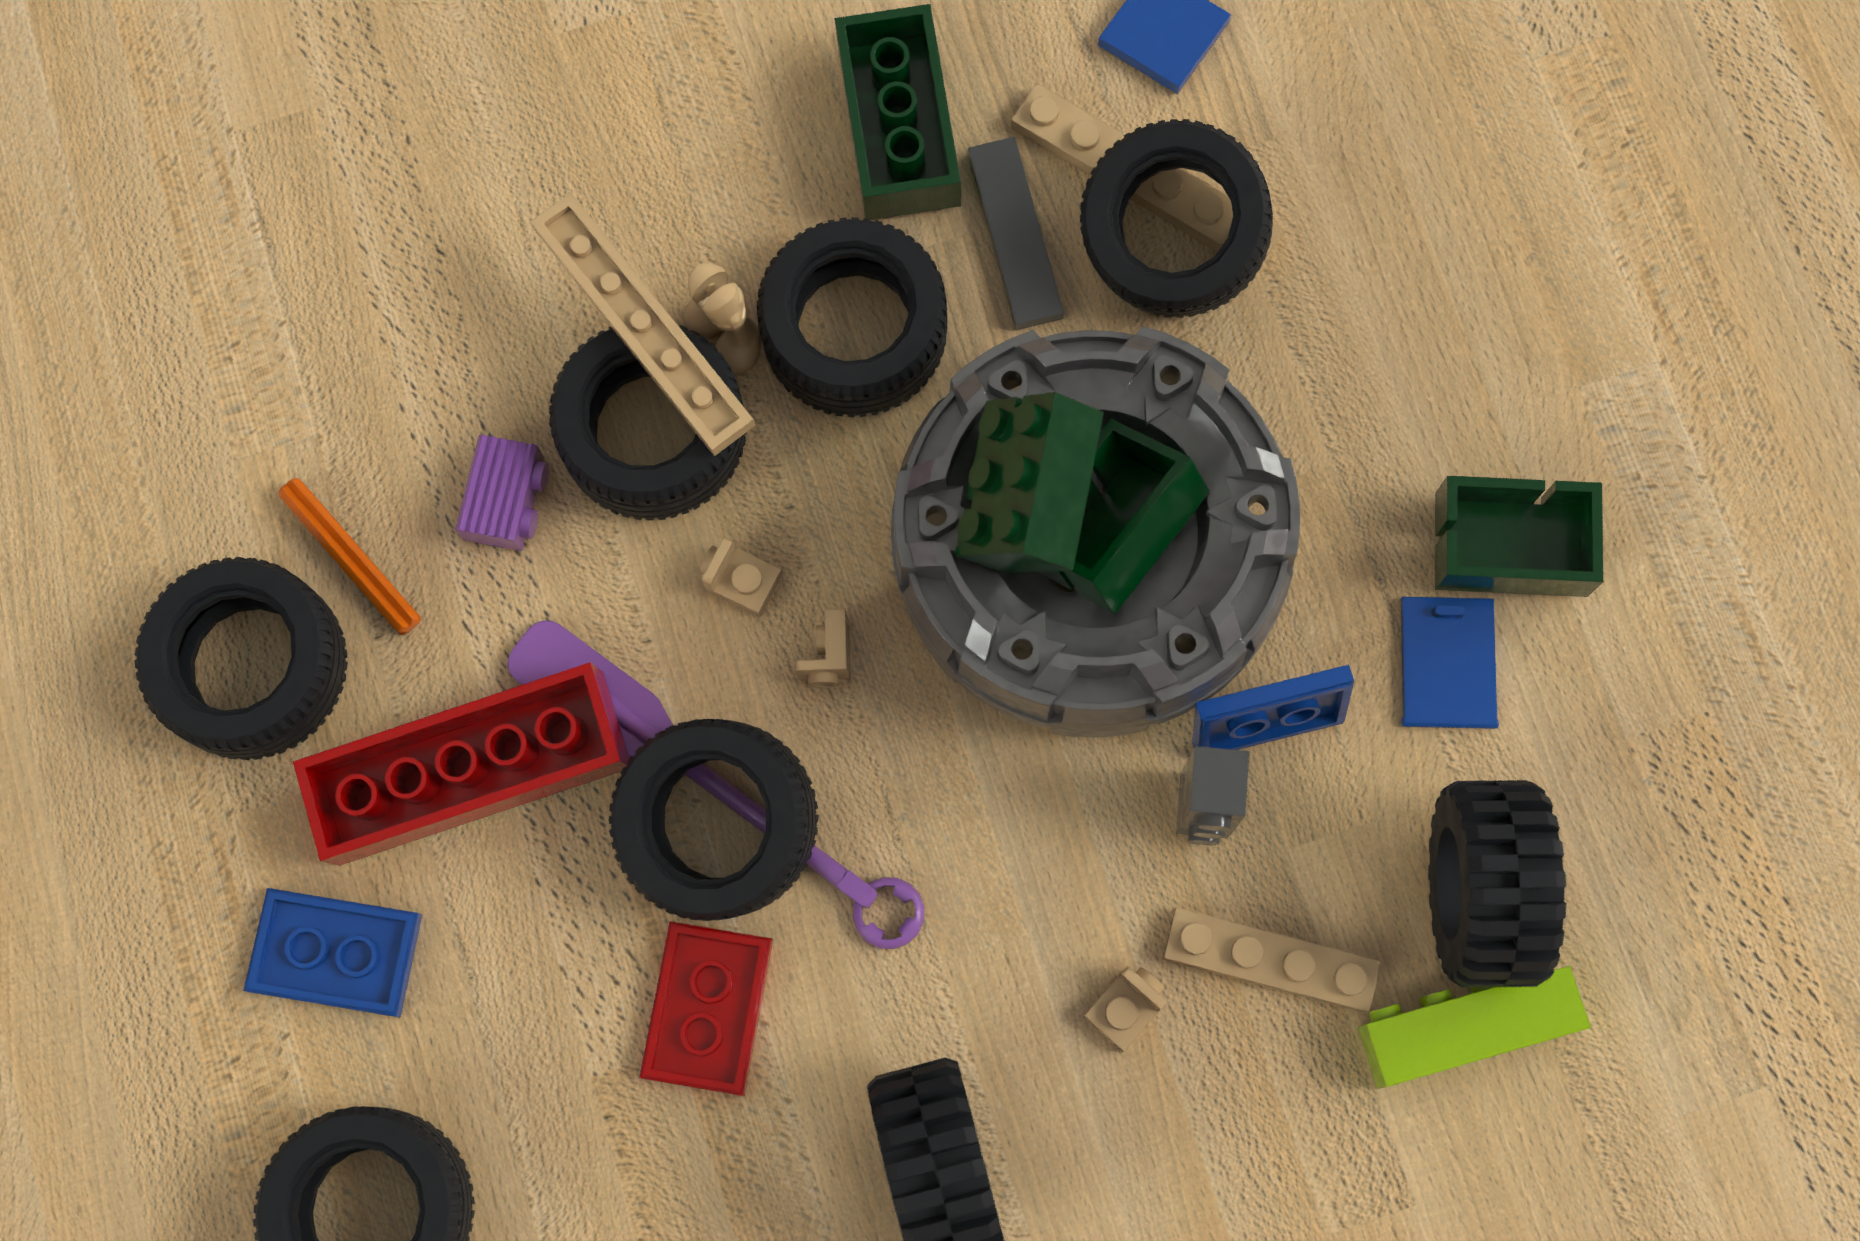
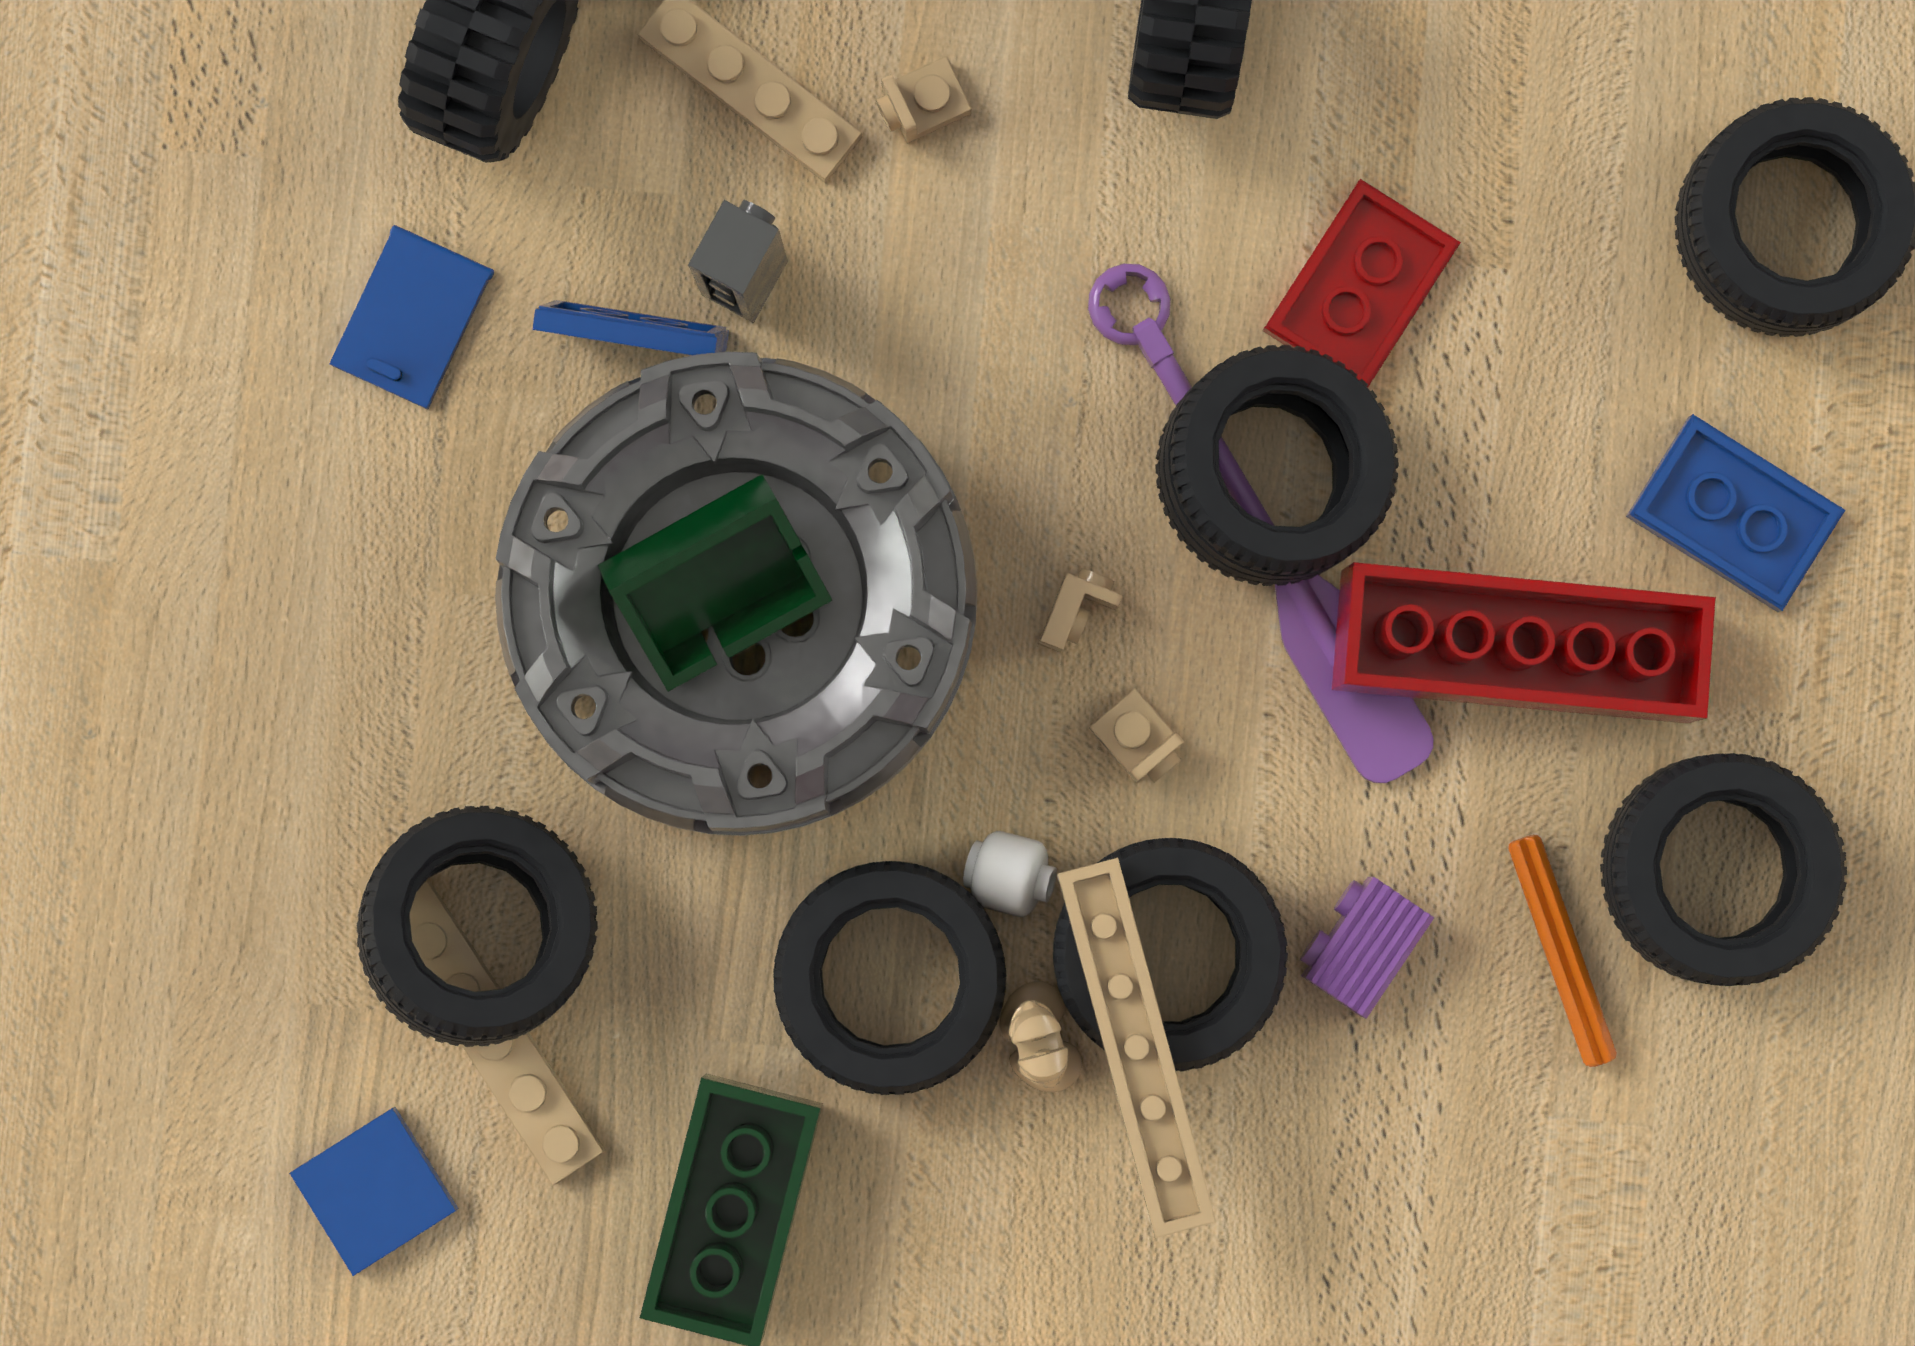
camera: 160 degrees left, 10 degrees up
(796, 433) = (1009, 873): none -> white head
(1015, 233) = (658, 1013): dark grey tile -> none
(1029, 483) = (796, 633): dark green piece -> none
(1508, 544) = (273, 408): dark green piece -> none

